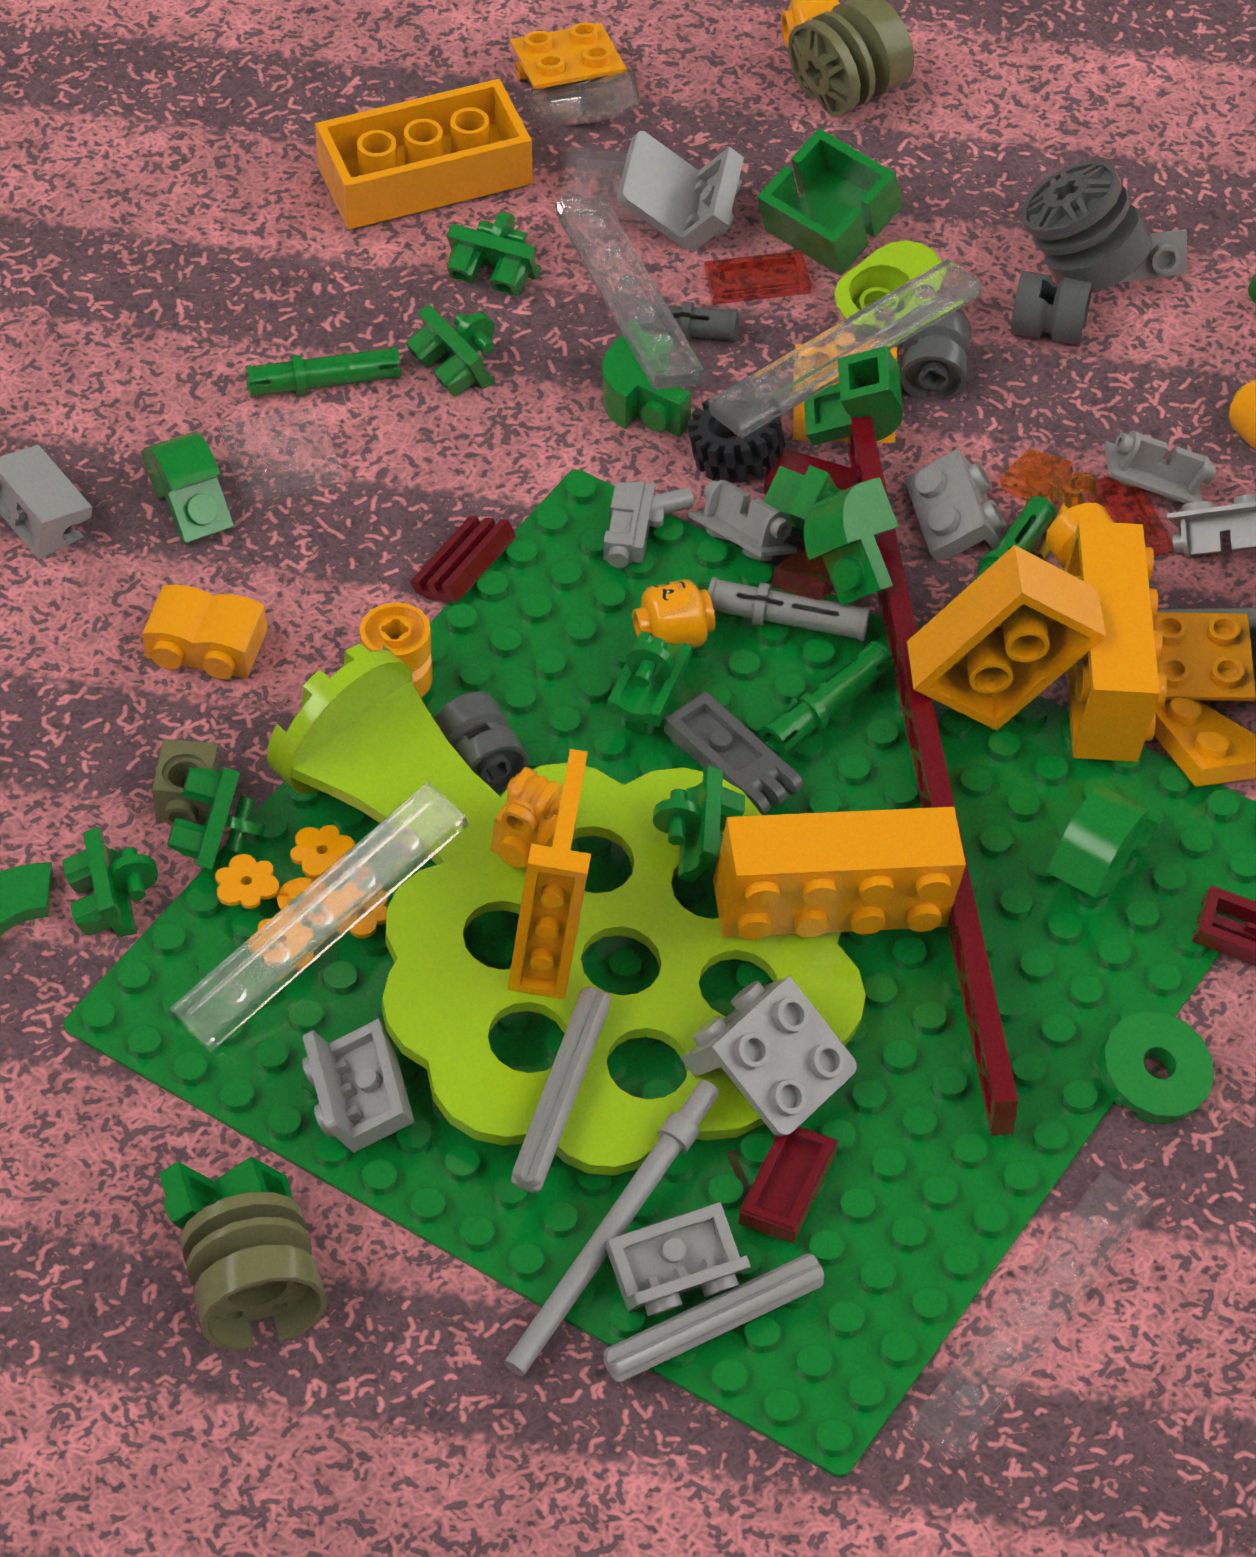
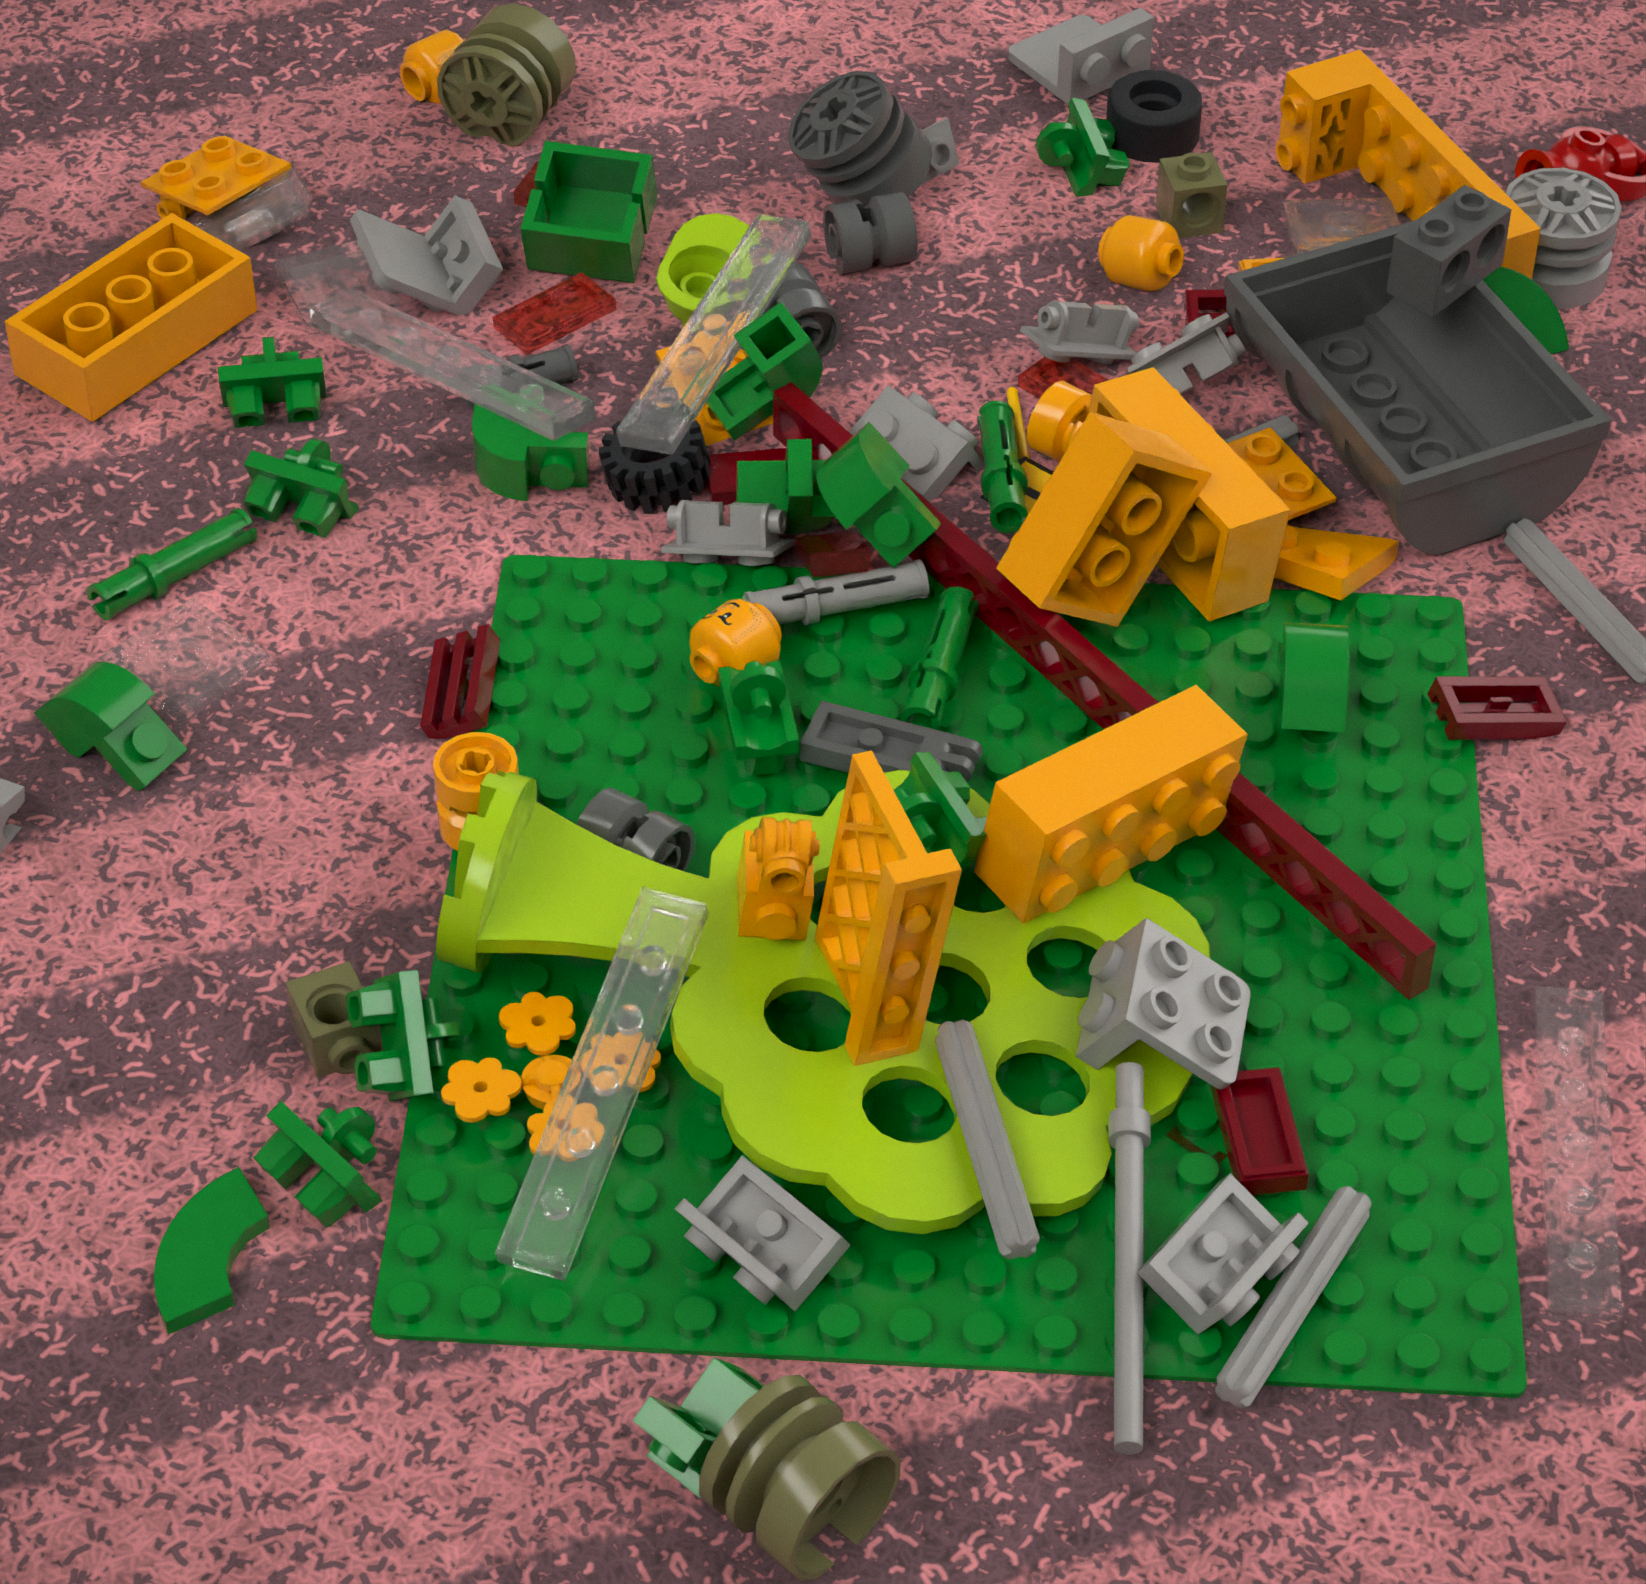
camera: 30 degrees left, 5 degrees down
(205, 631) = (238, 862): light orange brick -> none
(632, 513) = (612, 572): light grey piece -> none
(1048, 477) = (971, 384): clear orange plate -> none
(1173, 1044) = (1541, 866): green tile -> none

